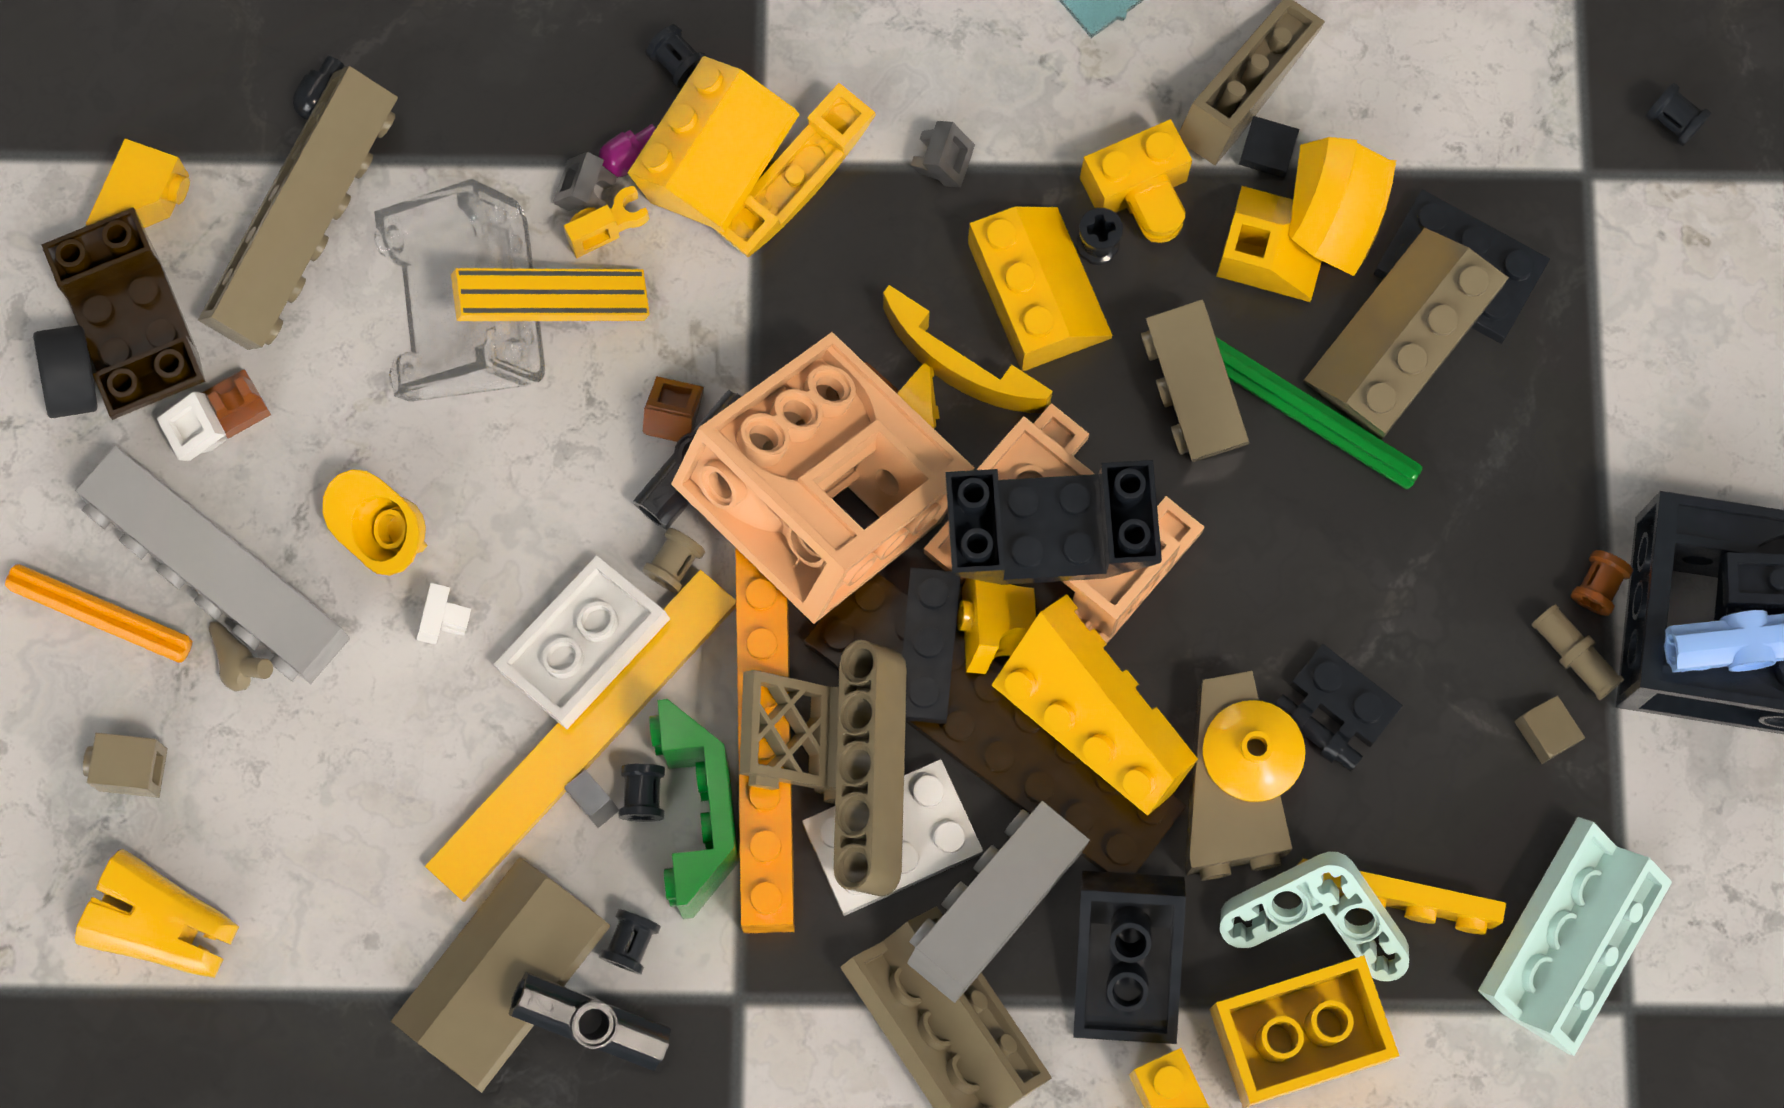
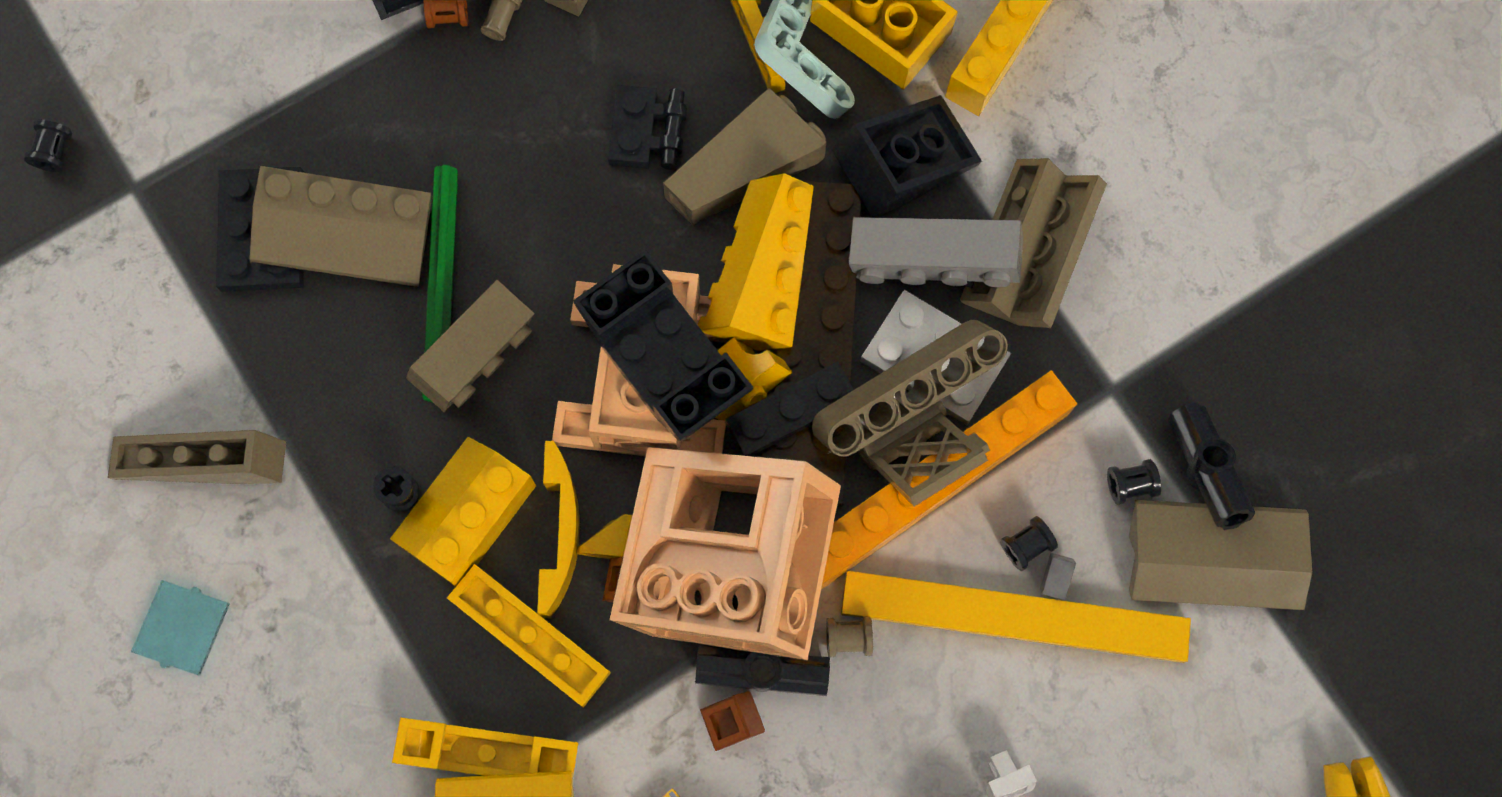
camera: 125 degrees left, 0 degrees up
(581, 642) = (956, 659): white plate -> none
(684, 745) = (1055, 455): green slope -> none
(866, 274) = (529, 635): none -> yellow plate
(946, 154) = (399, 644): flat silver tile -> none
(1141, 177) = (332, 487): yellow brick -> none
(1240, 772) = (716, 165): yellow dish -> none
(1262, 252) = (322, 364): yellow slope -> none
(1269, 146) = (245, 412): black tile -> none
(1339, 200) = (265, 327): yellow slope -> none

